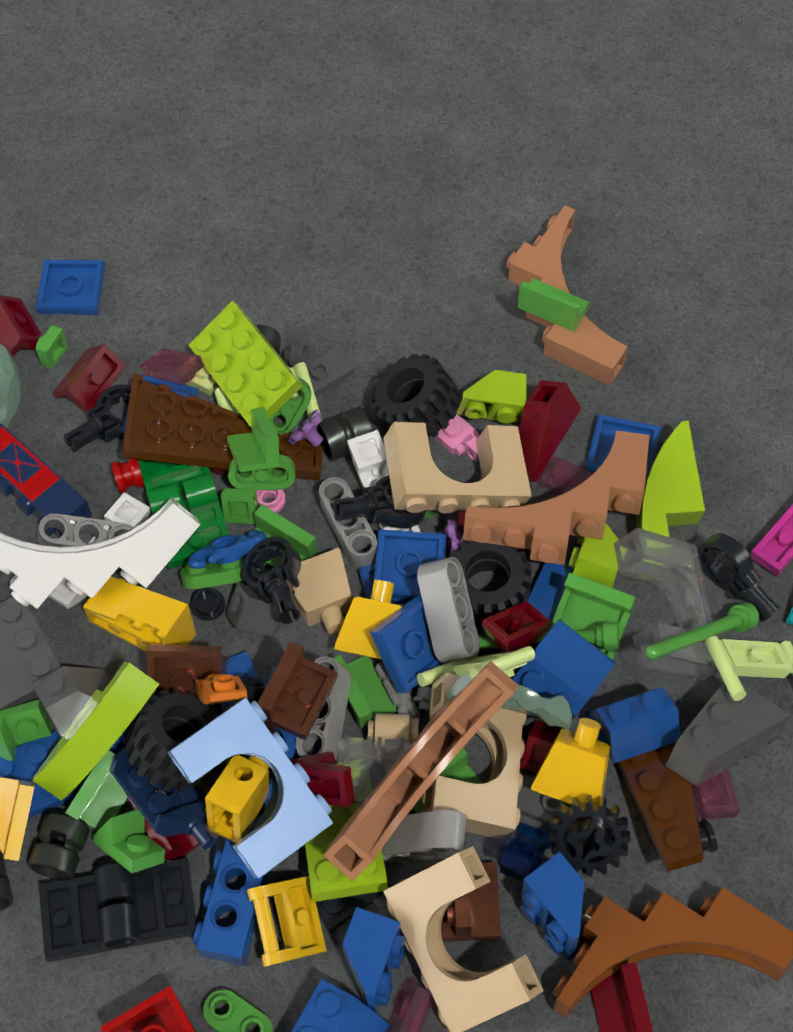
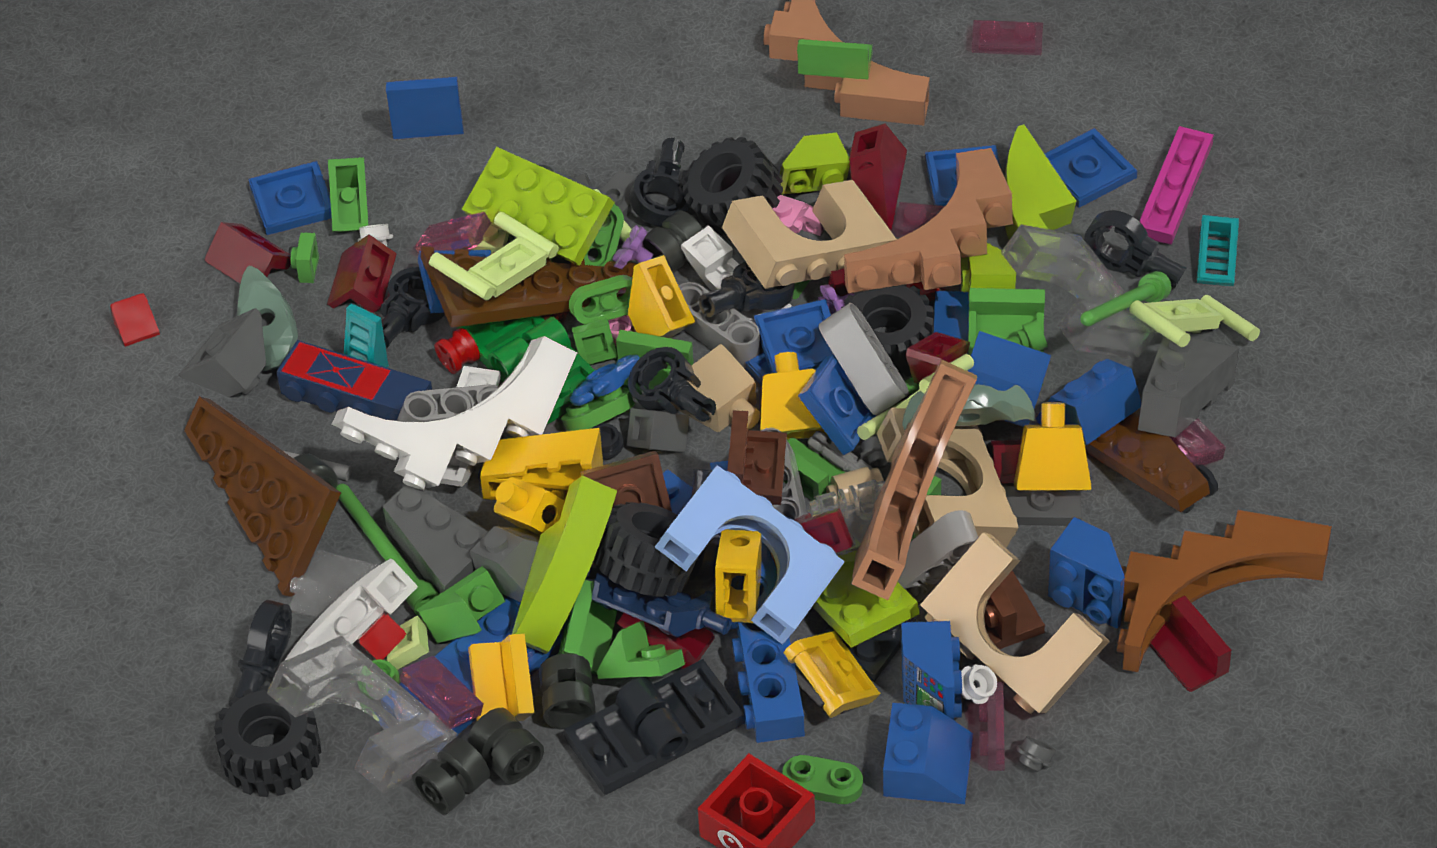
camera: 20 degrees left, 10 degrees down
(52, 445) = (361, 342): none -> teal slope
(102, 653) = (524, 504): none -> yellow torso
(107, 301) = (348, 194): none -> bright green slope
(116, 343) = (378, 231): none -> white plate
(187, 415) = (505, 266): none -> yellowish green plate
(201, 242) = (424, 108): none -> blue tile
(220, 688) = (684, 477): orange slope -> none
(256, 449) = (597, 270): bright green panel -> none
(302, 489) = (657, 301): none -> yellow slope
(367, 370) = (663, 181): none -> black pin
(413, 992) = (985, 681): none -> white plate
(524, 851) = (1033, 551): clear blue slope -> none
(601, 846) = (1093, 493): black gear -> none
(715, 325) = (1007, 37): none -> clear pink plate
(733, 474) = (1090, 167): none -> blue tile

